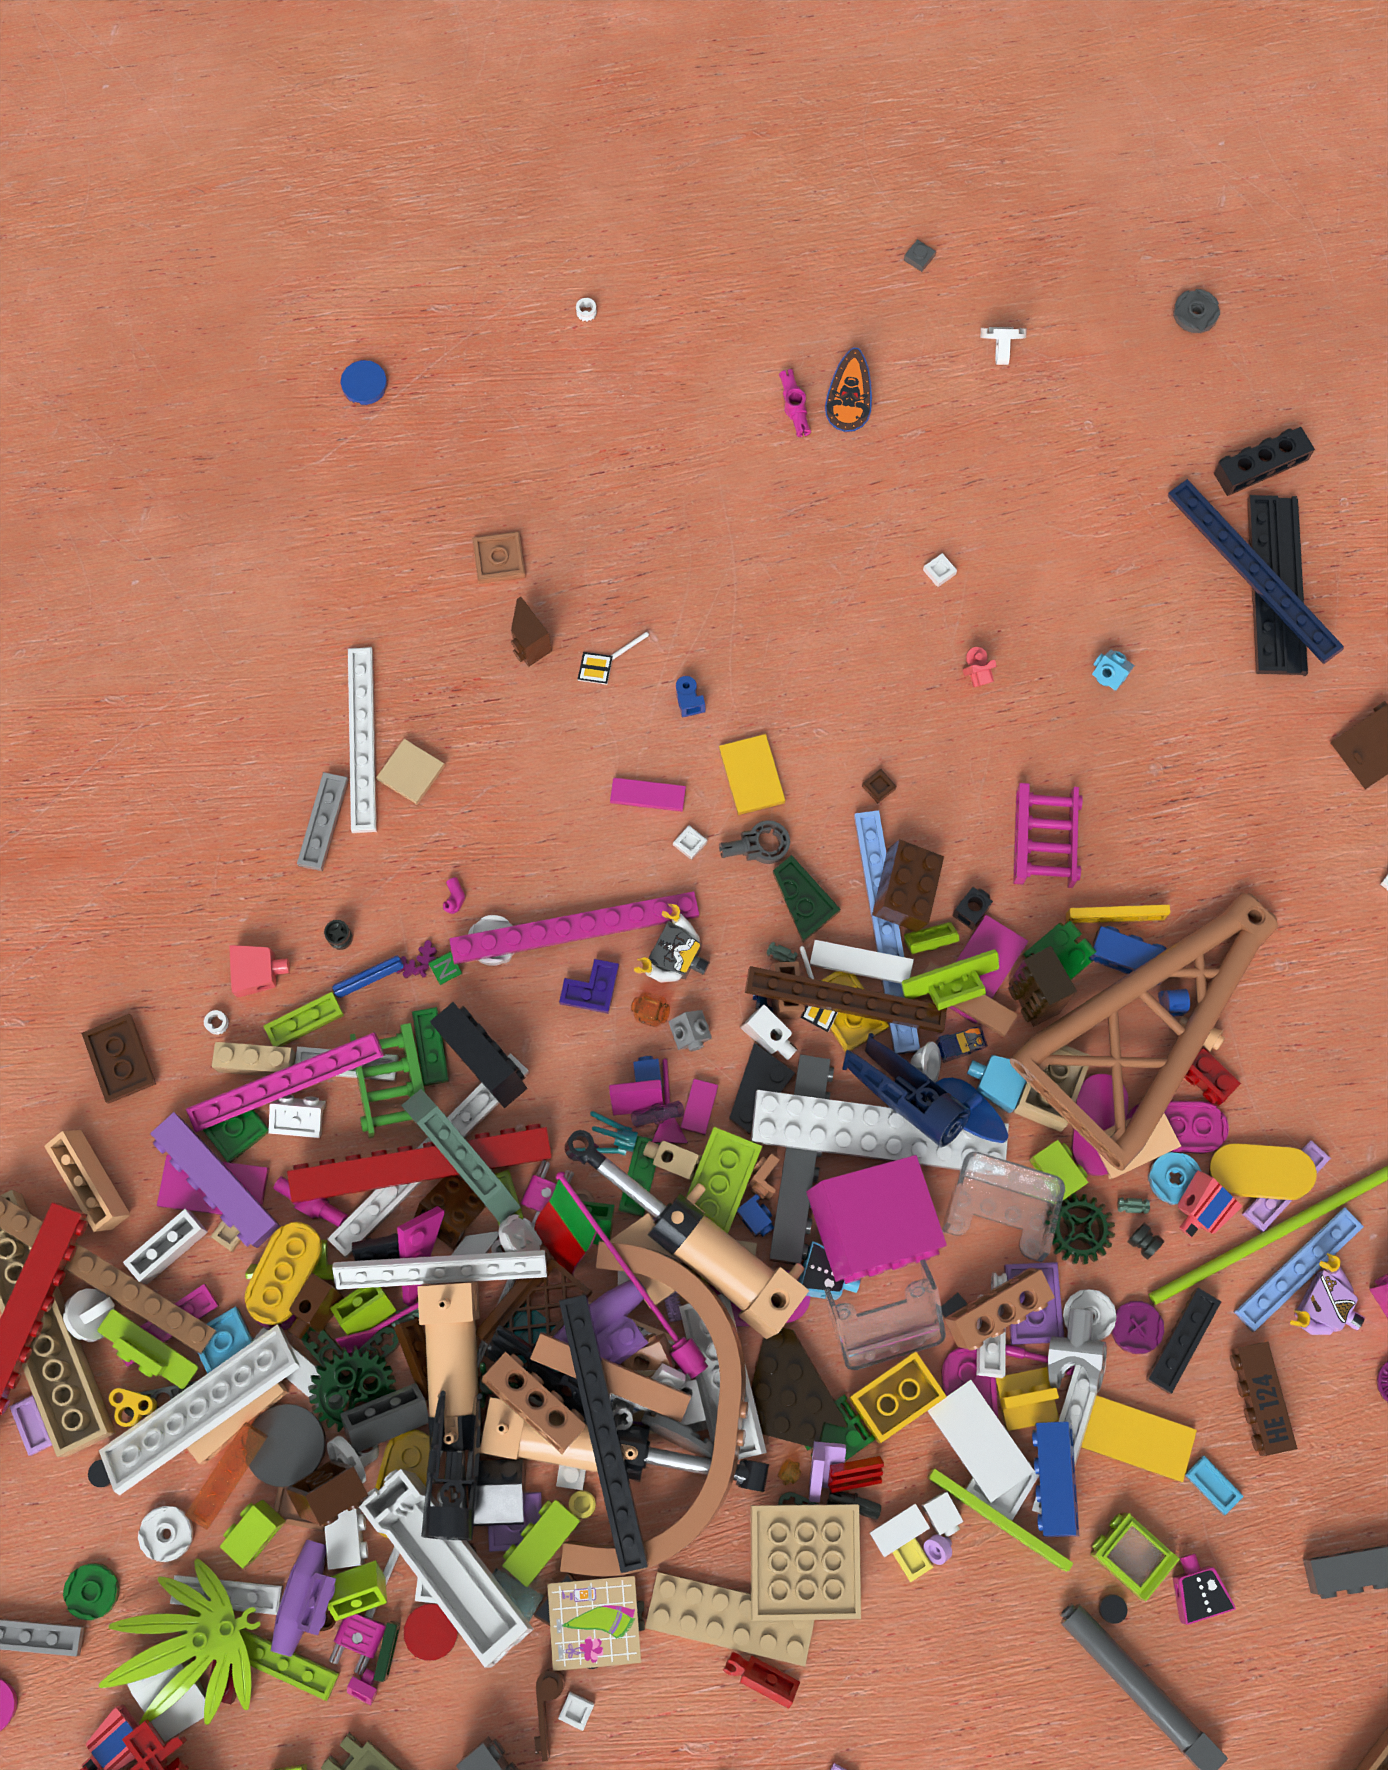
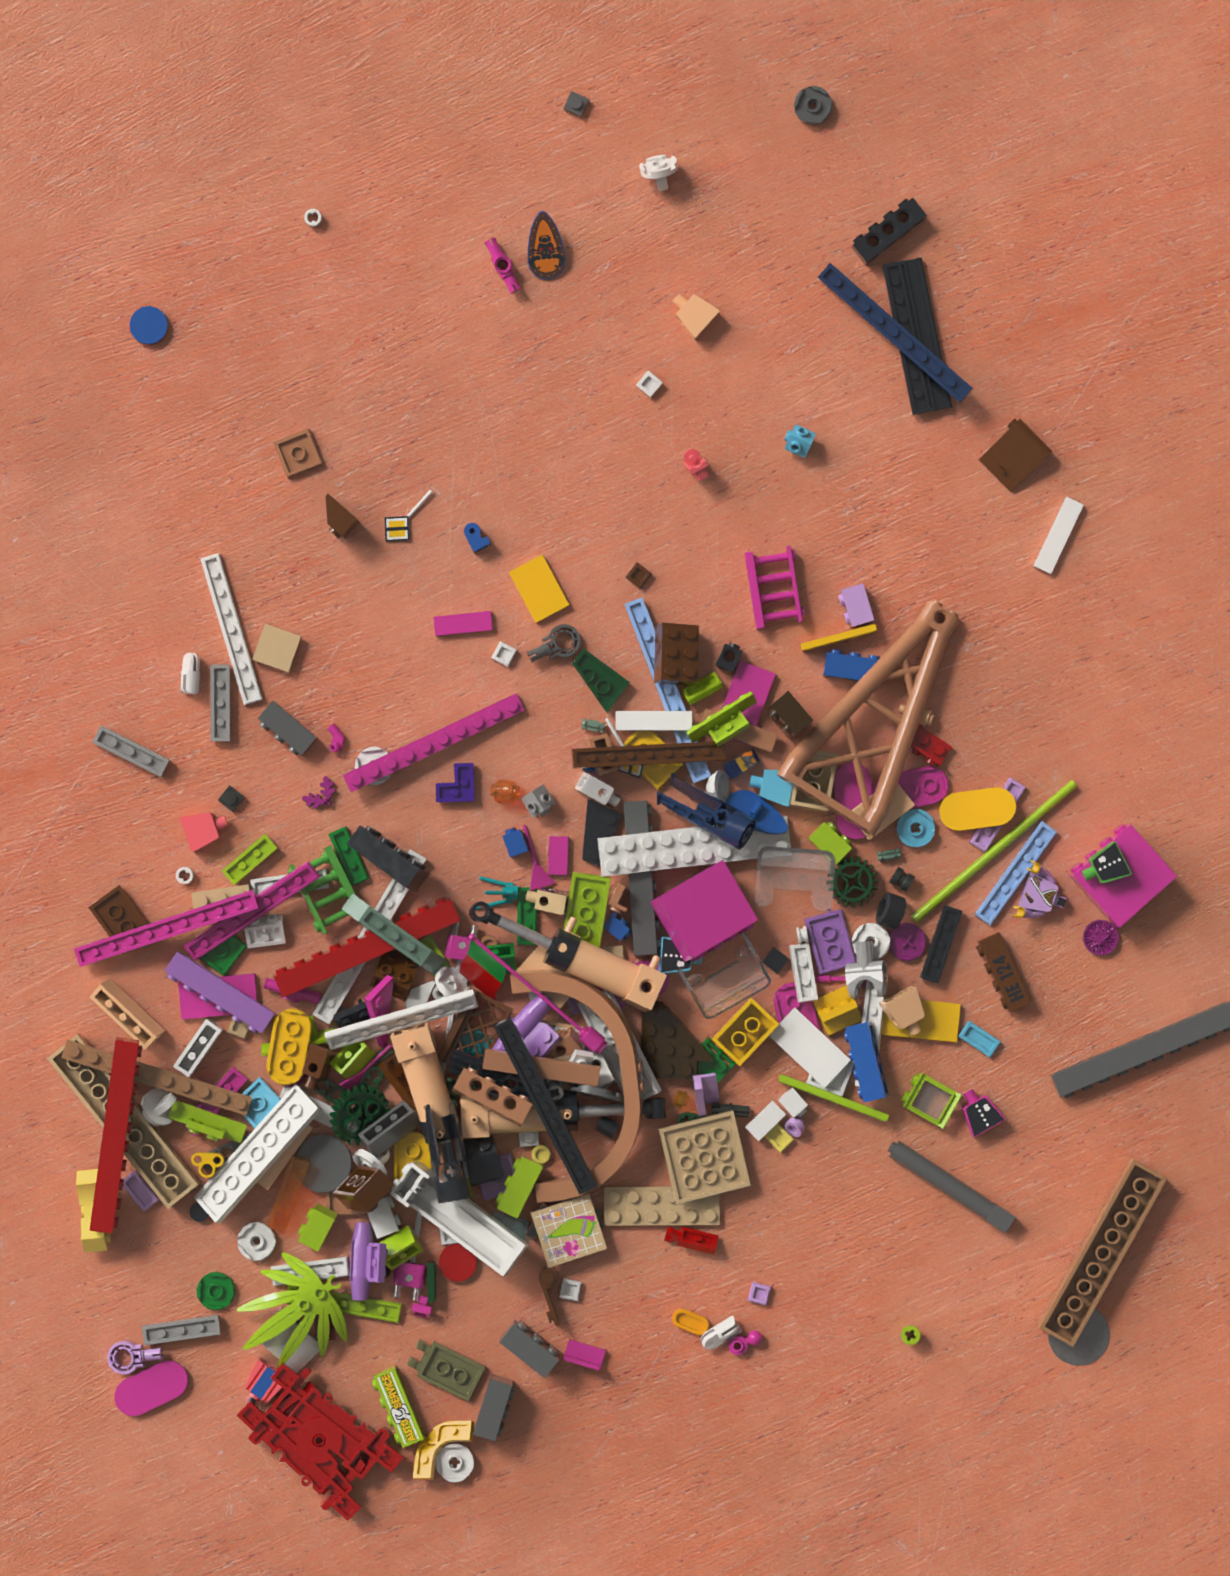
camera: 10 degrees left, 15 degrees up
(170, 1078) = (166, 928): none -> dark pink plate
(195, 854) = (131, 751): none -> light grey gear
(295, 779) = (190, 674): none -> white arm
(303, 940) = (231, 798): none -> pearl dark grey plate
(334, 931) = (255, 790): pearl dark grey wheel -> none
(368, 976) = (288, 815): blue axle -> none
(396, 870) = (287, 729): none -> dark grey brick
(444, 968) = (343, 795): green tile -> none
(635, 1096) = (511, 861): dark pink tile -> none
(657, 1114) = (528, 869): clear purple pin -> none
(674, 951) = (512, 744): torso -> none
(680, 1486) = (607, 1126): none -> black beam
(855, 1474) = (727, 1090): red tile -> none
(963, 1321) = (808, 942): nougat brick -> none
(1012, 502) = (694, 314): none -> light nougat torso
(1071, 954) = (801, 679): green plate -> none
(1113, 1609) = (923, 1138): black tile -> none
(1121, 1418) = (904, 1009): none -> light nougat torso
(1124, 1279) = (890, 910): none -> black tyre
(1147, 879) = (856, 605): none -> lavender brick
(1175, 1001) = (891, 696): blue leg -> none
(1206, 1205) = (940, 844): coral torso -> none

